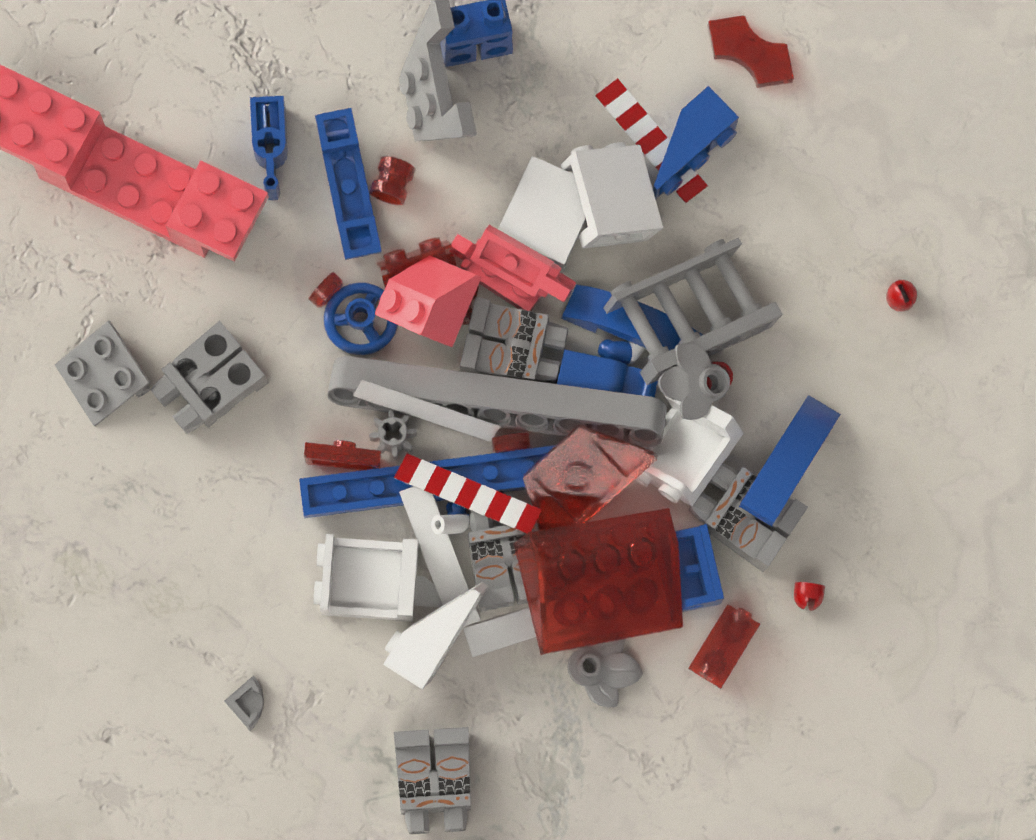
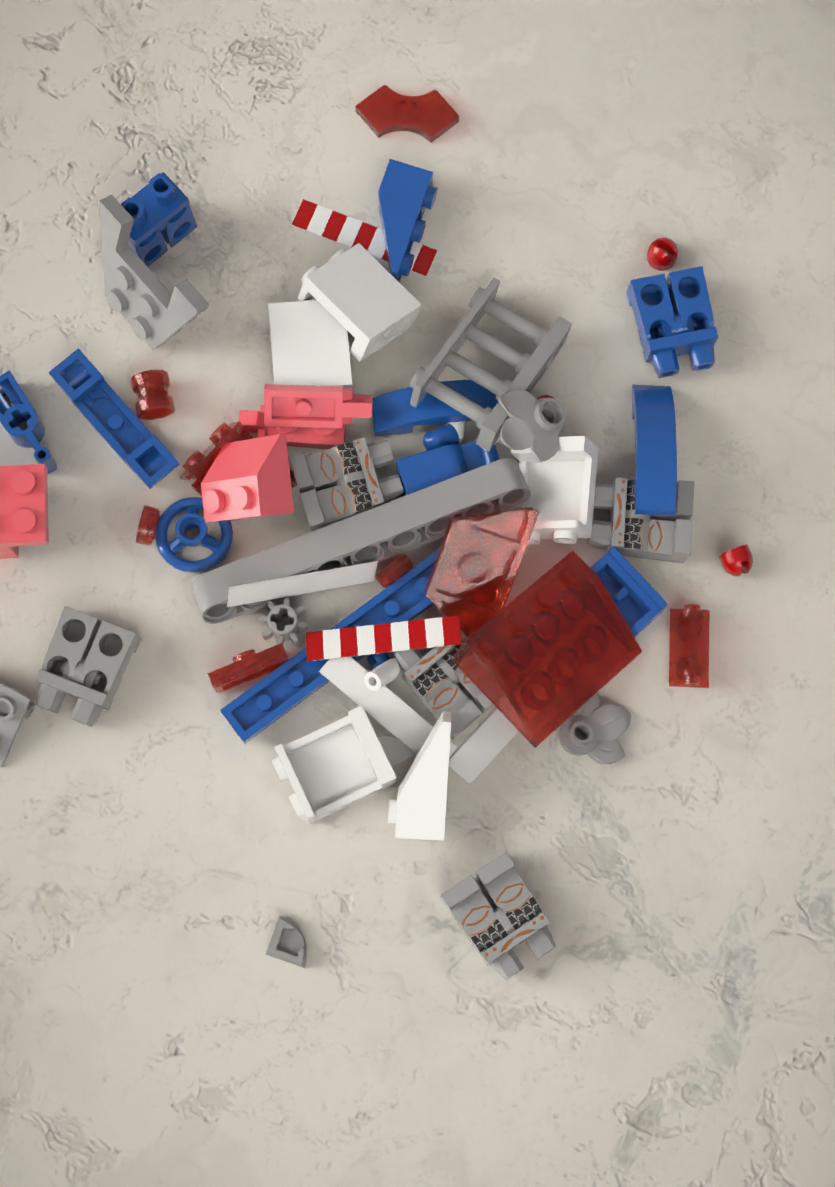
camera: 25 degrees left, 0 degrees up
(872, 371) = (674, 319): none -> blue hips

